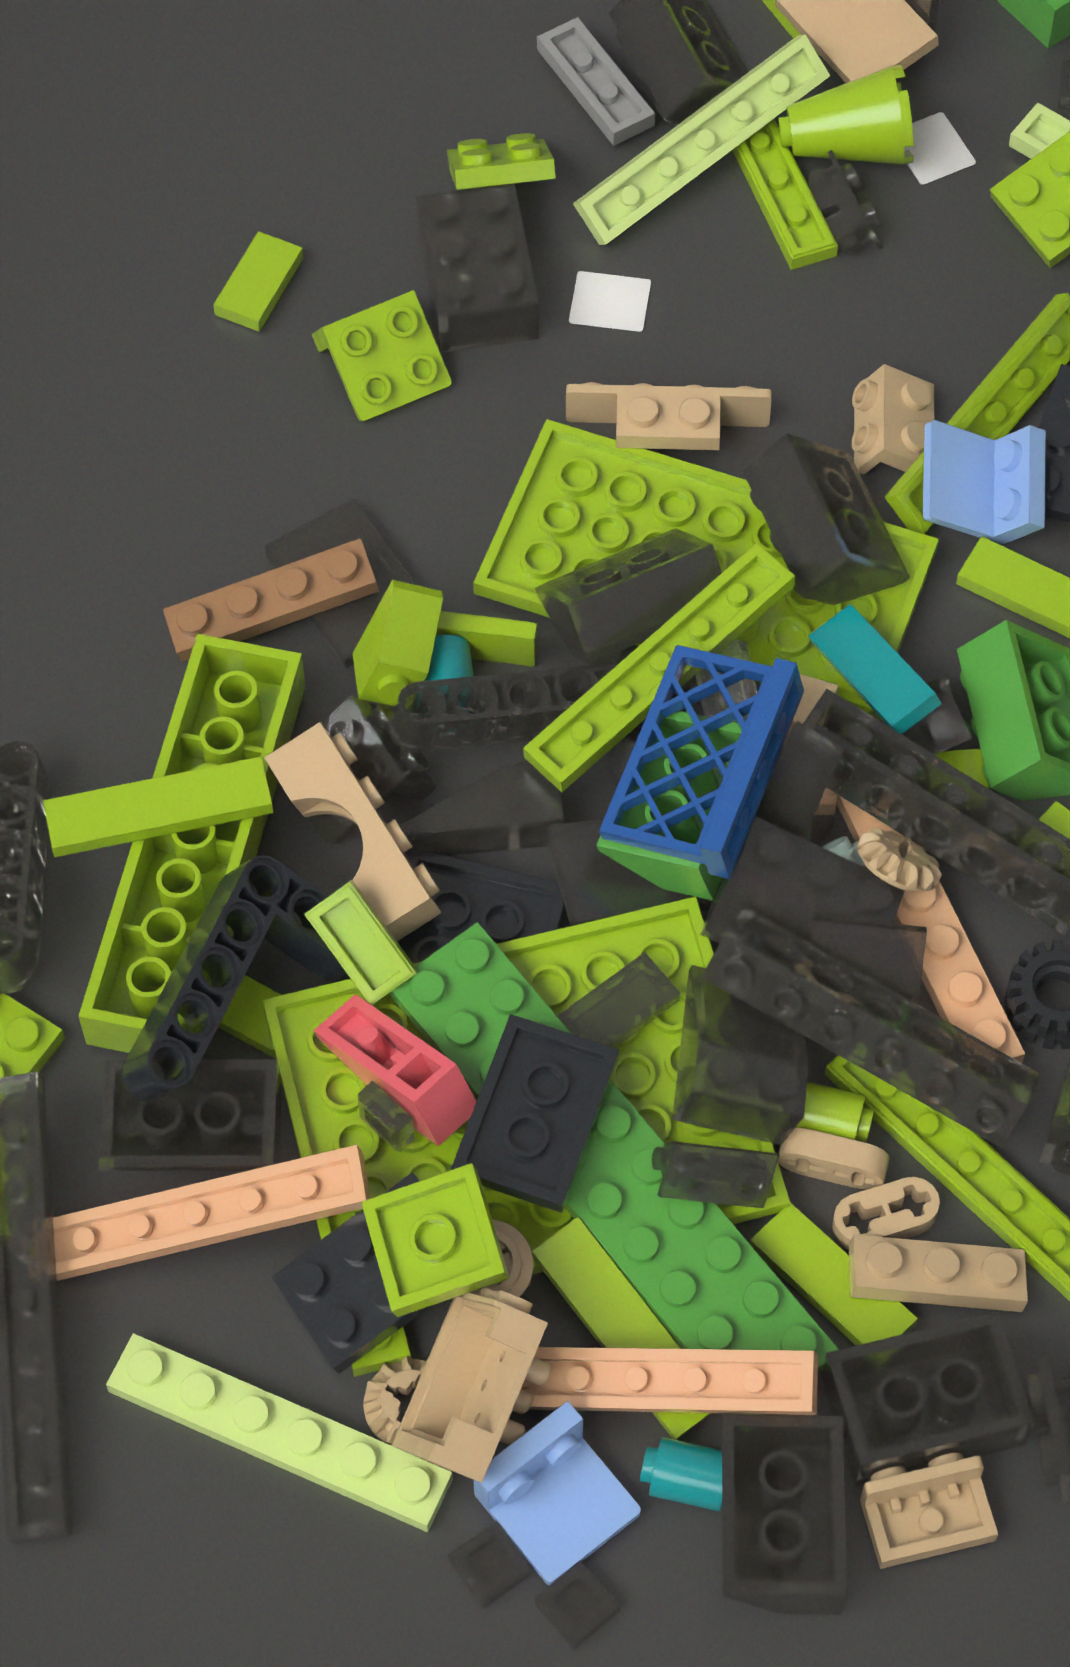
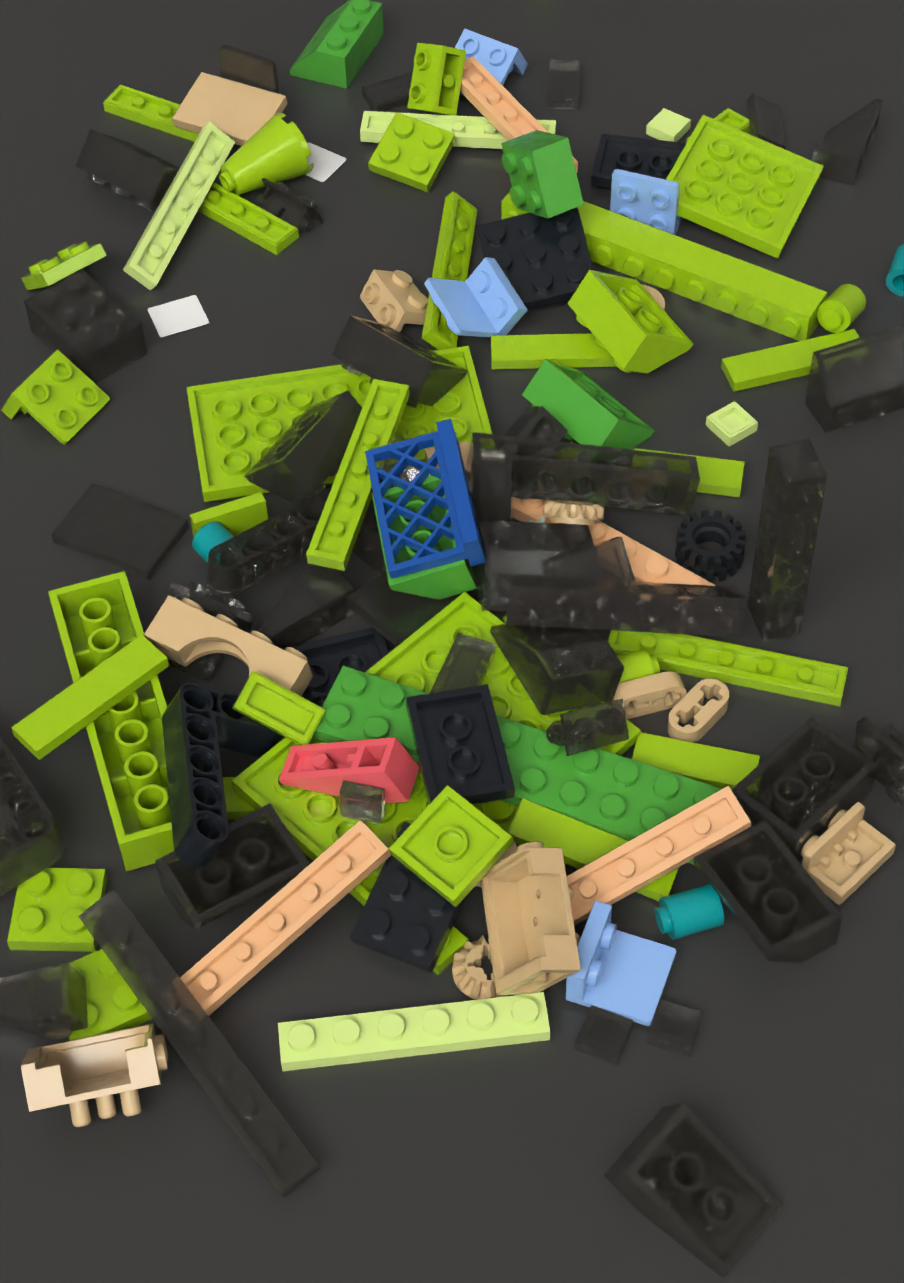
camera: 30 degrees left, 10 degrees down
(273, 598) = (77, 558): medium nougat plate -> none
(397, 642) = (181, 540): lime slope -> none
(595, 81) = (90, 205): light grey plate -> none
(668, 414) = (258, 352): tan bracket -> none
(874, 670) = (488, 417): teal tile -> none
(937, 1273) = (752, 725): tan plate -> none

